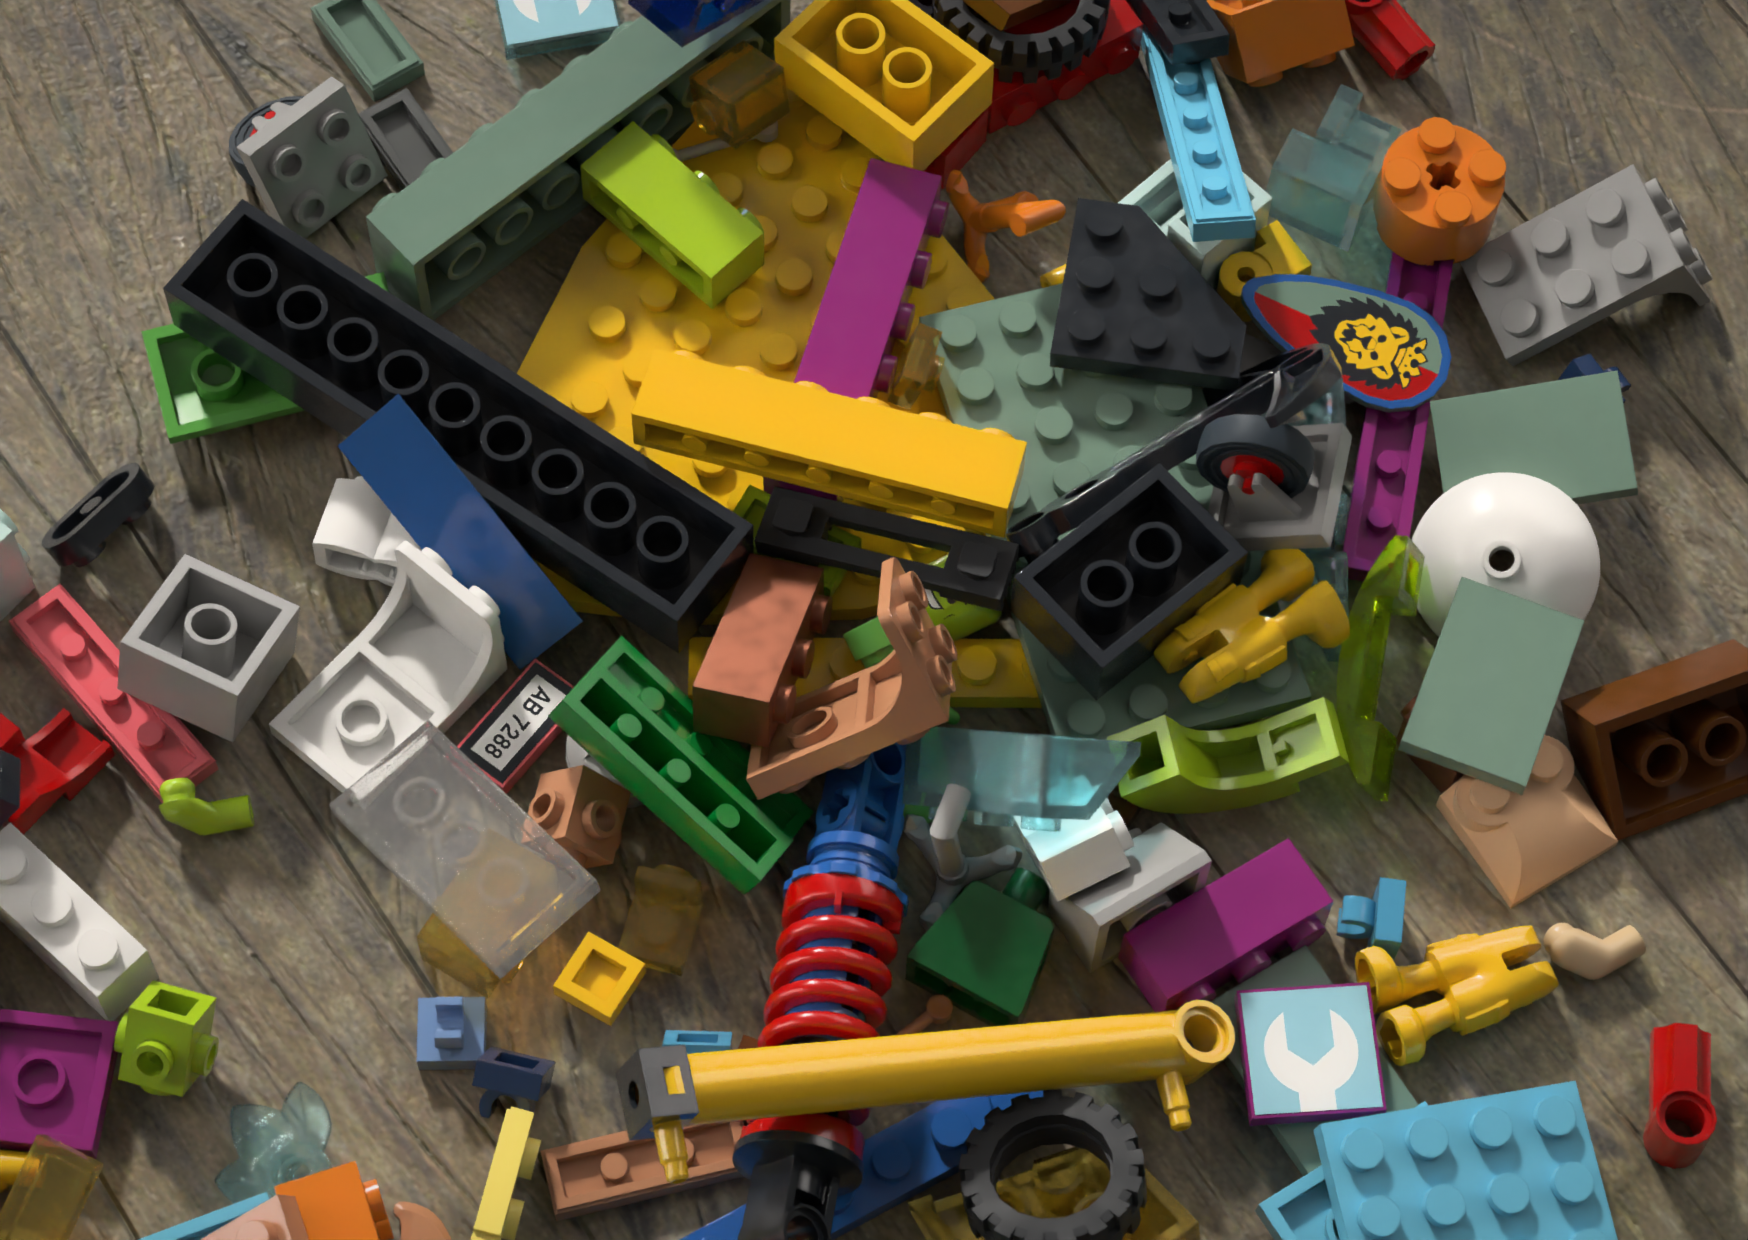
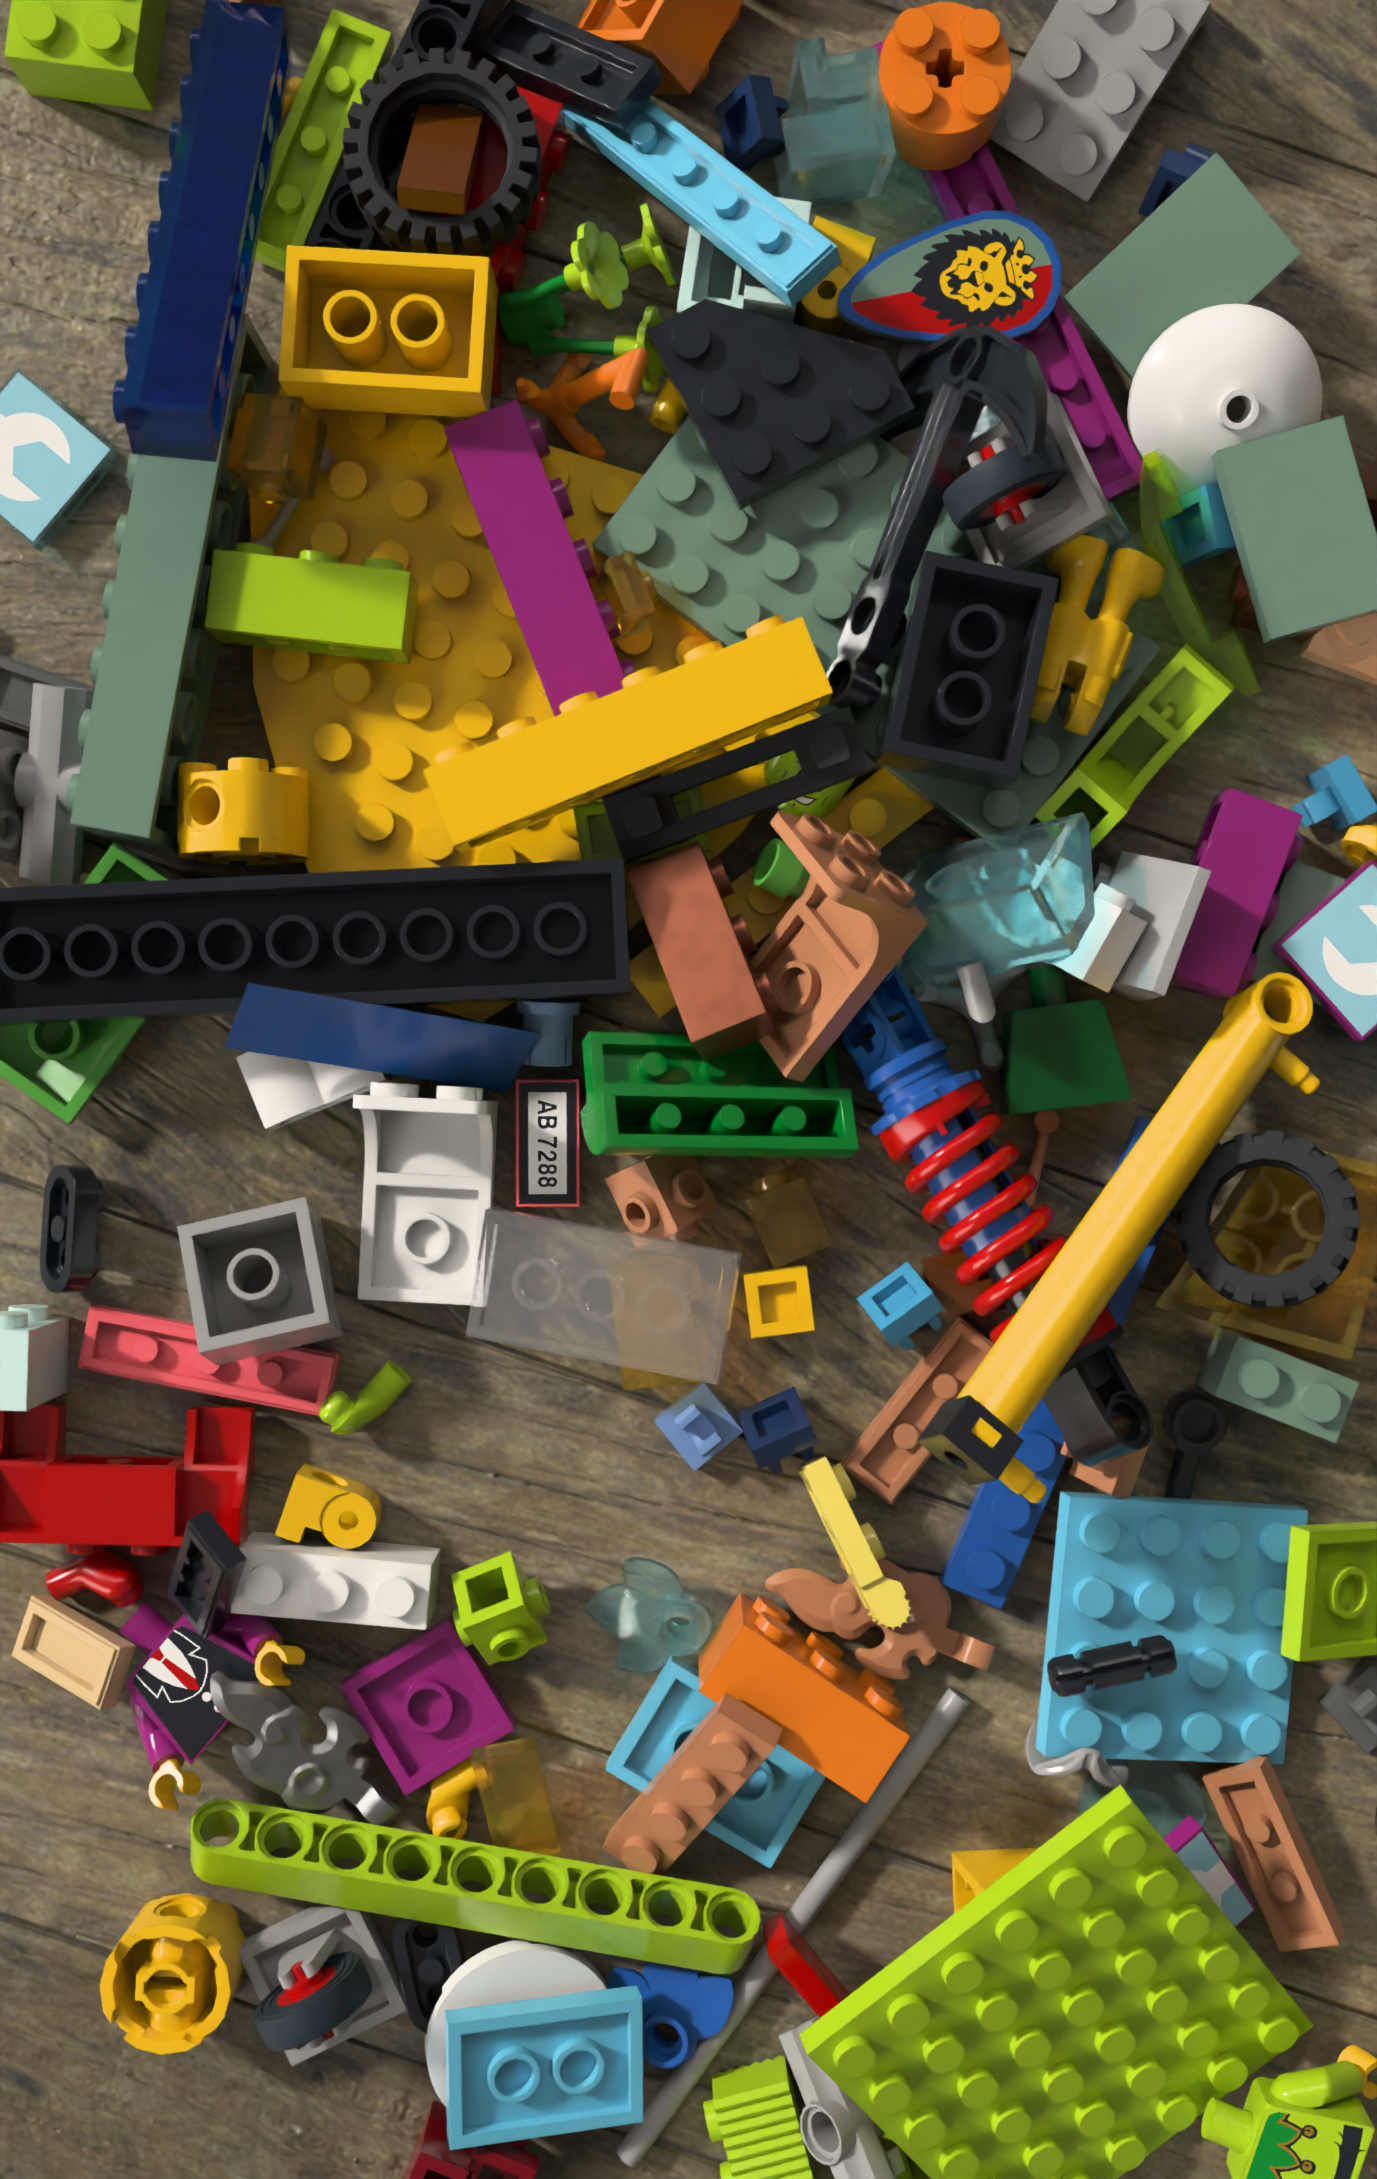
camera: 30 degrees left, 25 degrees up
(105, 865) = (330, 1504): none -> yellow leg
(345, 229) = (49, 842): none -> light grey piece
(499, 309) = (242, 813): none -> yellow brick
(591, 638) = (555, 1026): none -> light blue bush
(1073, 136) = (600, 270): none -> lime plant
(1275, 128) = (751, 122): none -> dark blue tile
(1414, 641) = (1201, 528): none -> dark azure tile

